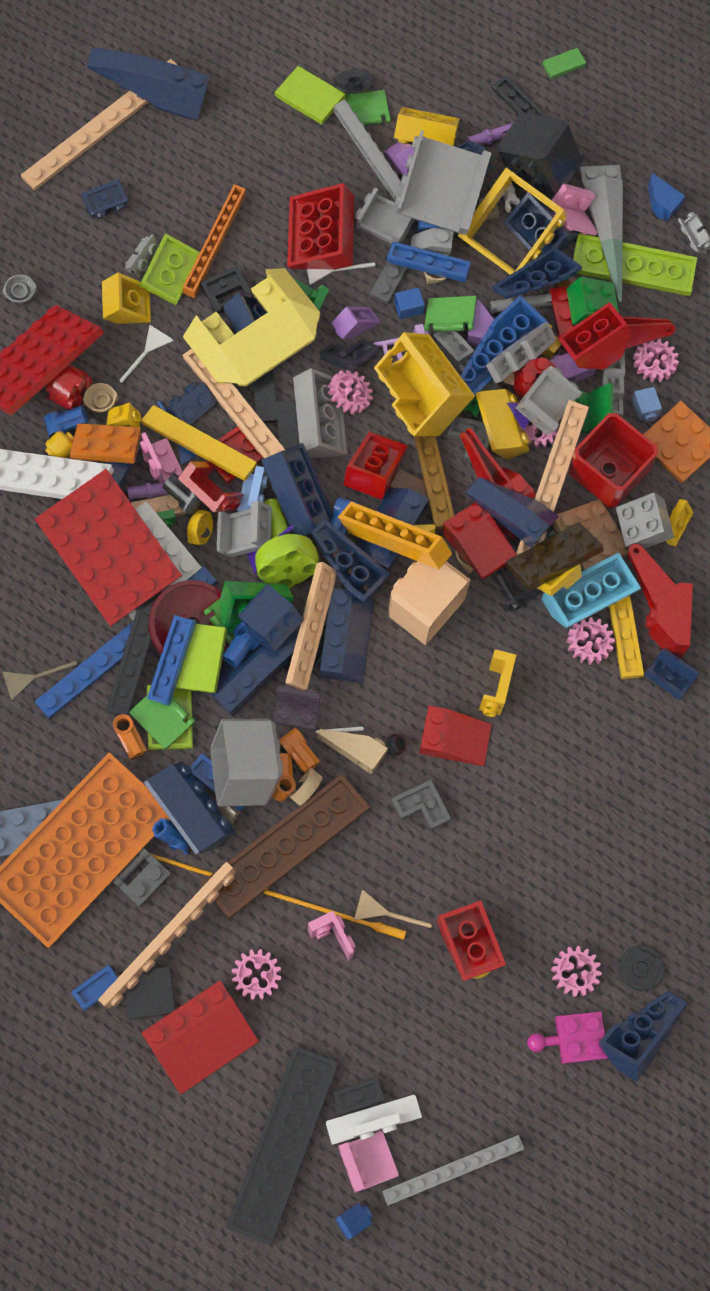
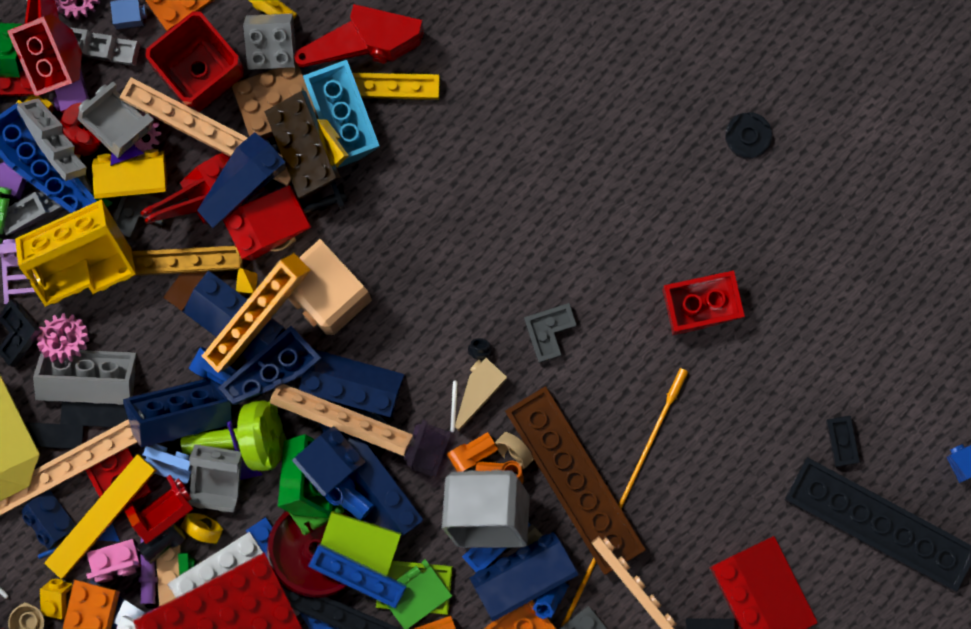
camera: 70 degrees left, 10 degrees up
(268, 976) = (693, 524): bright pink gear -> none
(321, 926) = (668, 453): bright pink bracket -> none
(368, 1162) = (908, 441): bright pink bracket -> none
(370, 908) = (651, 401): tan piece -> none
(373, 1119) = (868, 429): white bracket -> none
(374, 465) = (154, 323): red slope -> none
(452, 1170) = (926, 357): light grey piece -> none
(454, 736) = (479, 285): red slope -> none
(502, 663) = (414, 216): yellow panel -> none
(576, 1036) = (811, 211): dark pink plate -> none
(585, 652) = (401, 112): bright pink gear -> none
(587, 977) = (756, 209): bright pink gear -> none
(599, 403) = (123, 64): green bracket -> none
(638, 1039) = (820, 151): dark blue wedge -> none
(671, 674) = (442, 45): dark blue bracket -> none

